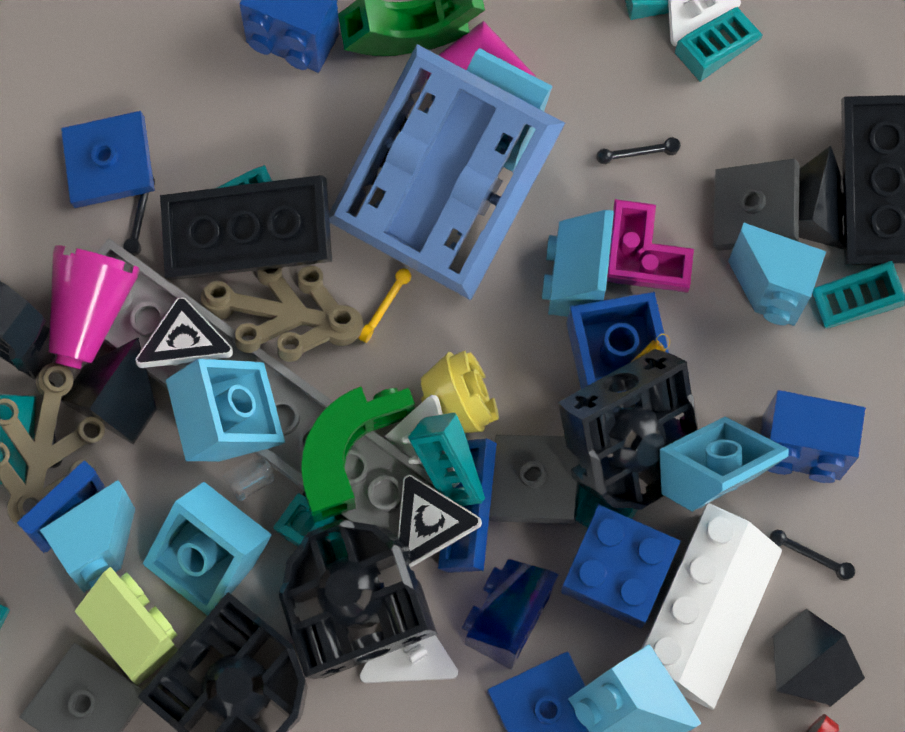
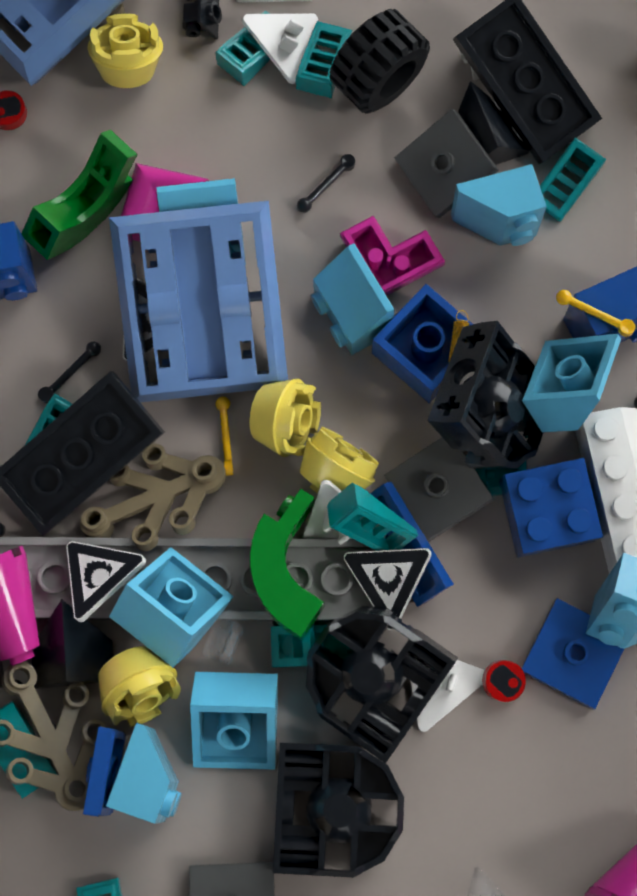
camera: 30 degrees left, 5 degrees up
(131, 634) = (221, 826): yellowish green slope -> none
(145, 456) = (135, 685): none -> light yellow cone
(328, 153) = (92, 349): none -> black hinge
(445, 320) = (284, 416): none -> light yellow cone
(465, 688) = (504, 680): none -> red tile
(510, 610) = (497, 600): clear blue slope -> none
(760, 74) = (379, 61): none -> black tyre
(801, 449) = (625, 327): none -> yellow hinge

